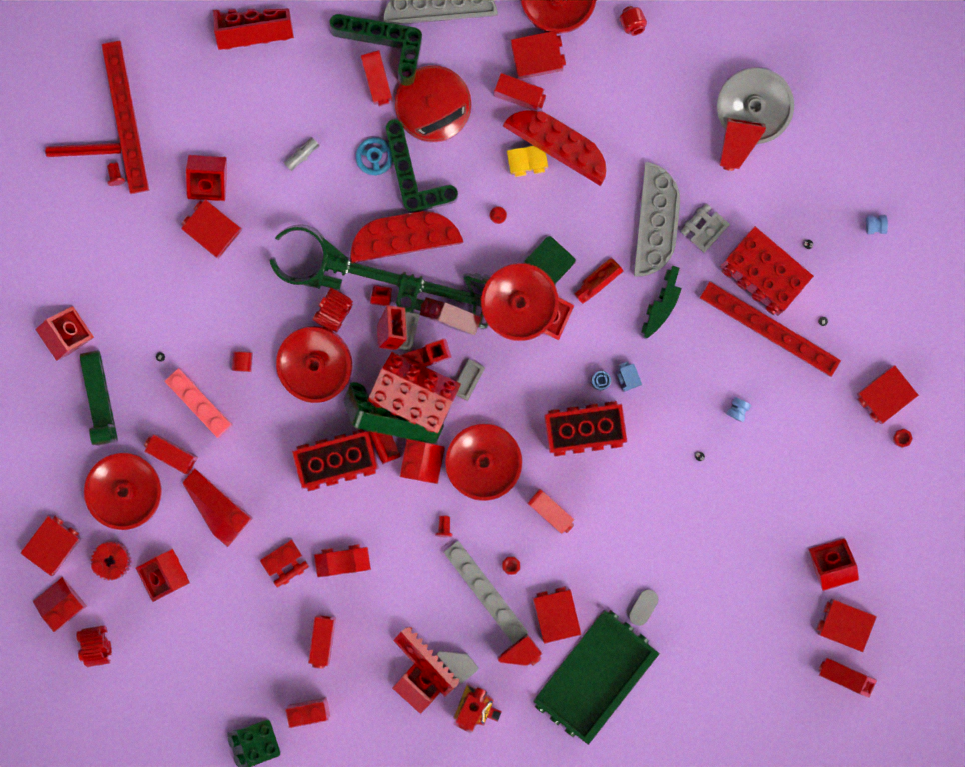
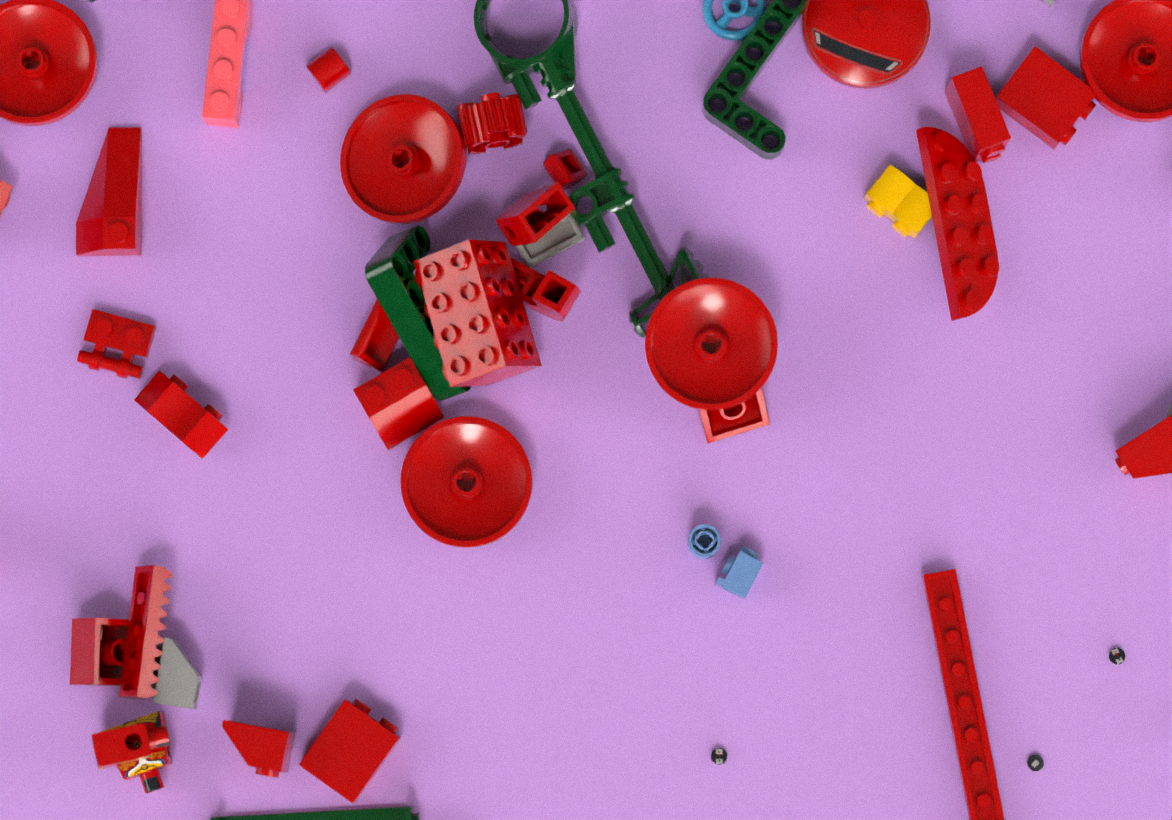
camera: 50 degrees right, 5 degrees down
(170, 453) = (130, 78): red brick -> none
(322, 641) = (55, 475): red brick -> none
(335, 460) = (302, 289): red brick -> none
(403, 235) = (666, 130): red plate -> none
(444, 527) = (338, 505): red piece -> none
(450, 316) = (615, 273): brick -> none
(469, 378) = (557, 372): light grey tile -> none
(485, 592) = (301, 632): light grey plate -> none
(498, 215) = (799, 227): red piece -> none
(511, 565) = (364, 634): red tile -> none
(551, 259) = (802, 343): dark green bracket -> none
(551, 511) = (478, 624): slope -> none
(585, 428) = (623, 572): red brick -> none
(598, 280) = (829, 425): red hinge -> none
(657, 220) = (972, 433): light grey plate -> none
(660, 311) = (860, 539): dark green slope -> none
(709, 232) = (1018, 514): light grey plate -> none
(738, 409) = (824, 752): medium blue wheel -> none
(766, 271) = (1033, 628): red brick -> none

